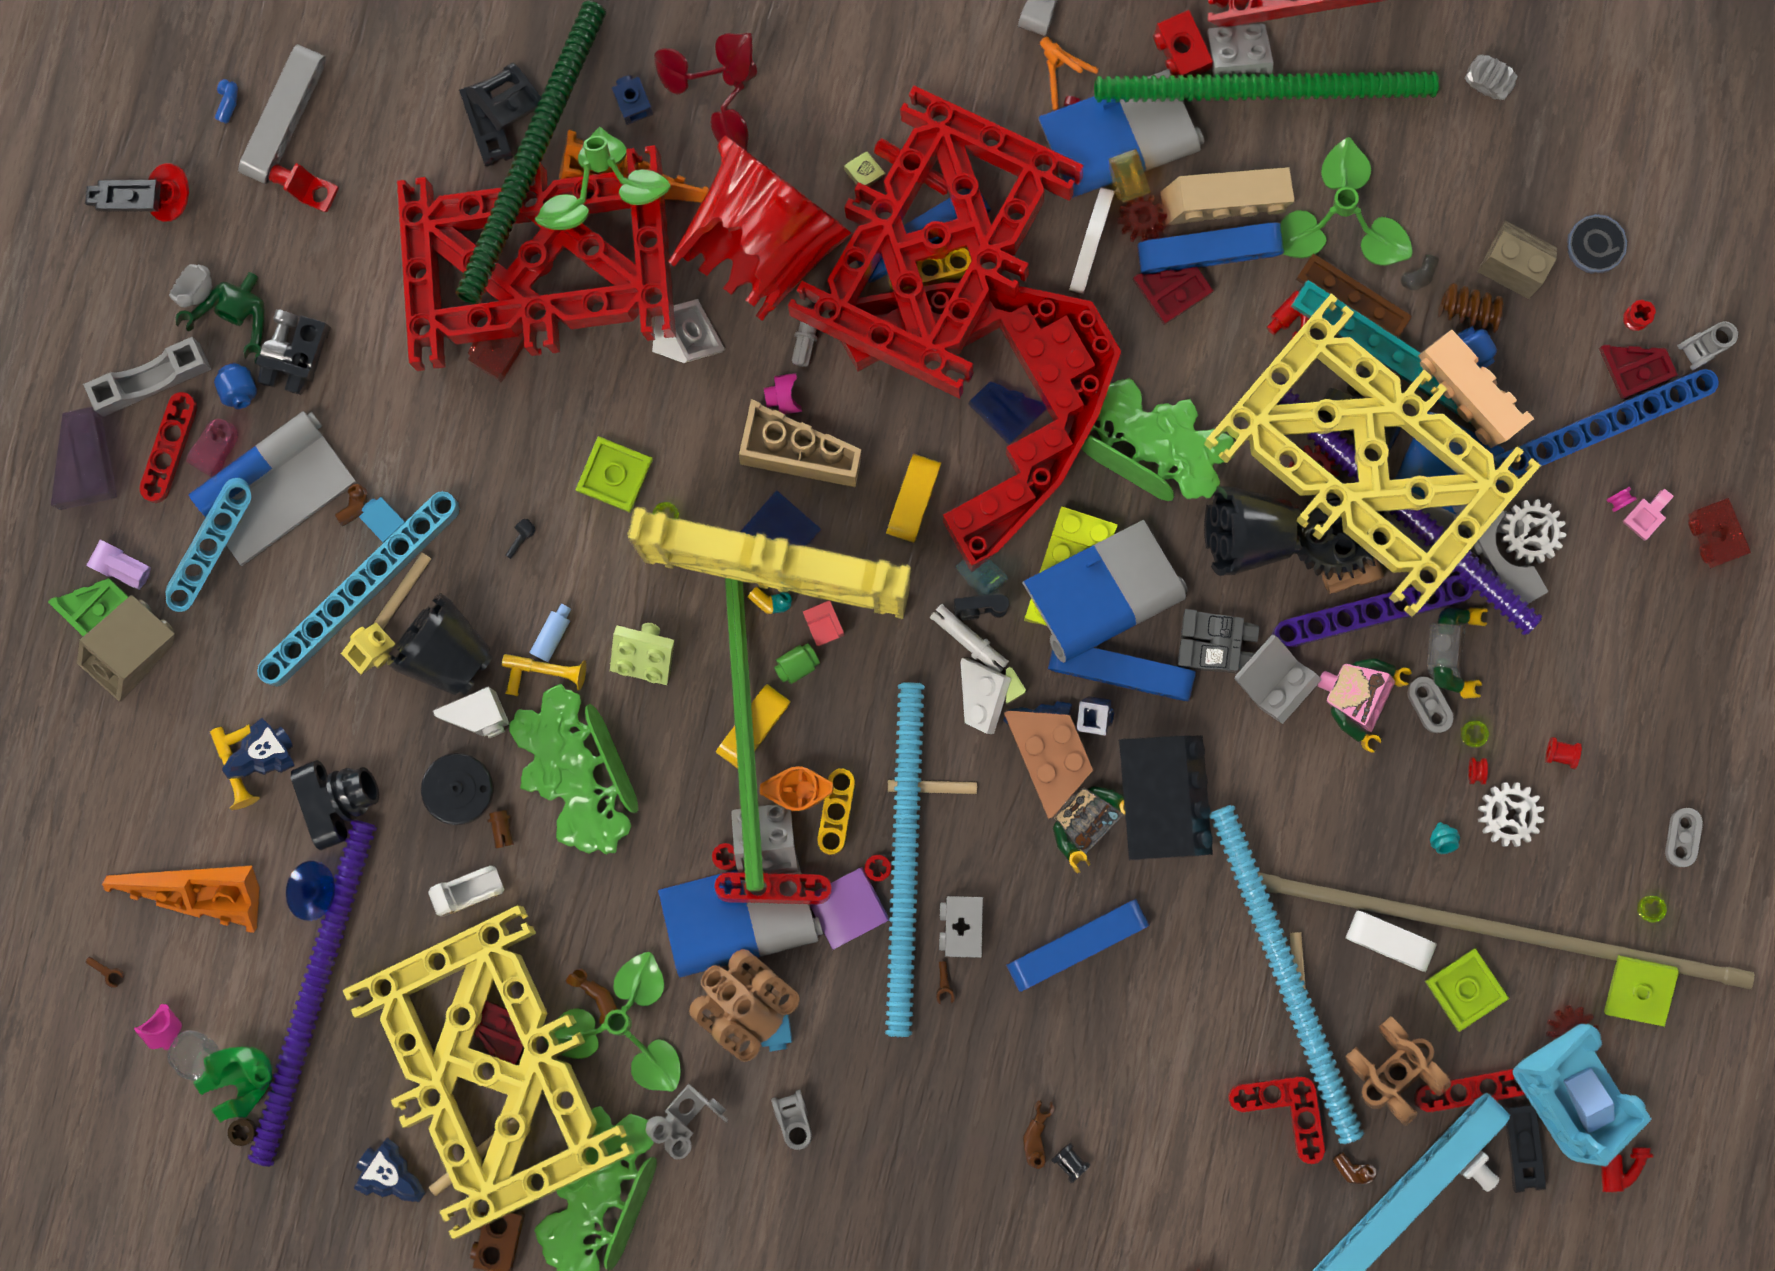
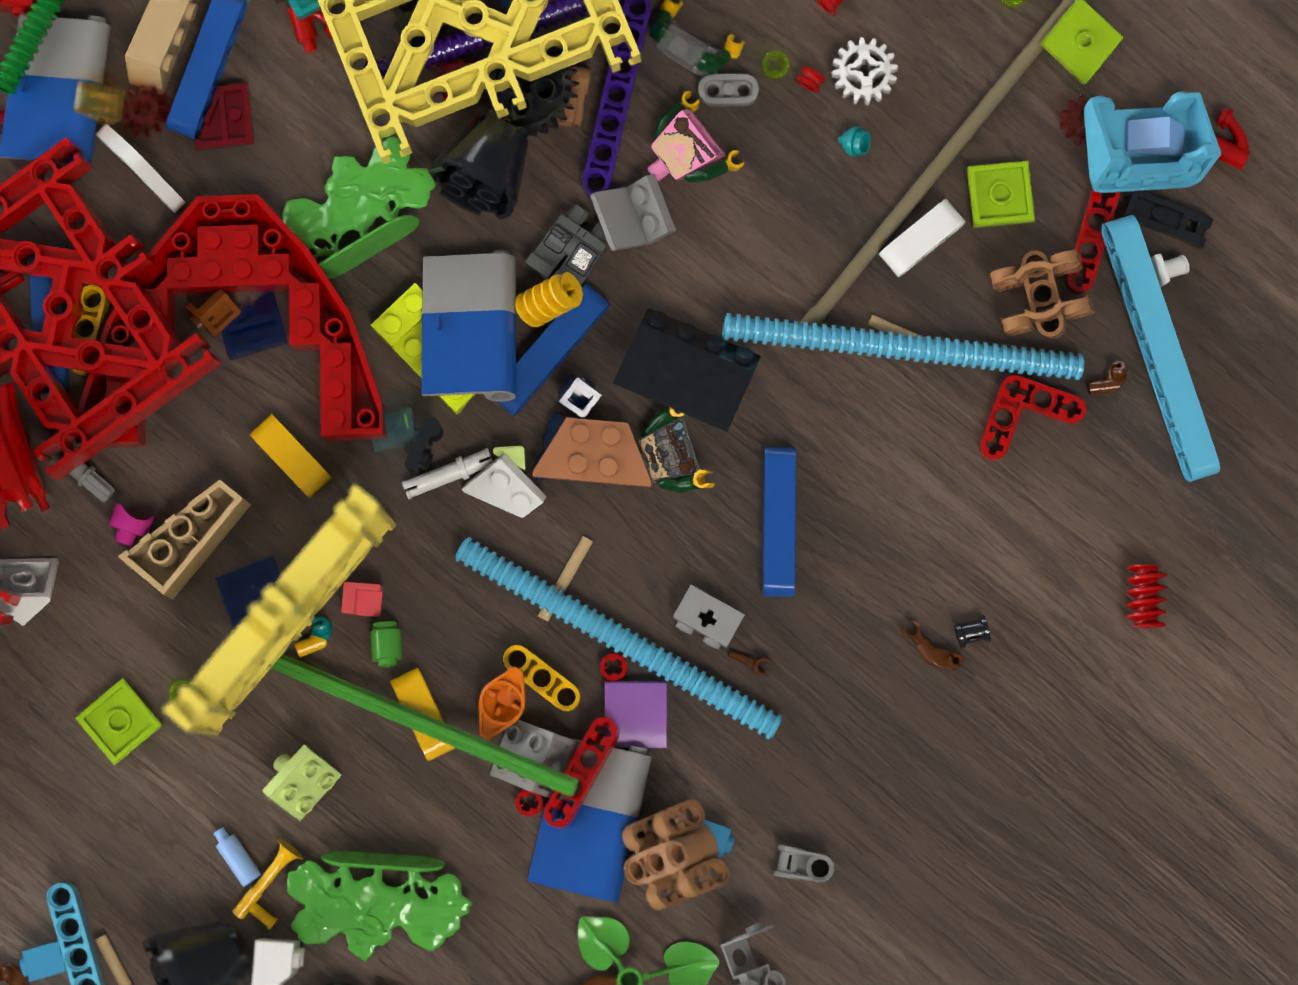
camera: 65 degrees left, 0 degrees up
(526, 530) = (127, 831): black hand -> none
(1000, 369) = (214, 313): none -> dark orange bracket
(1163, 646) = (549, 299): none -> yellow piece

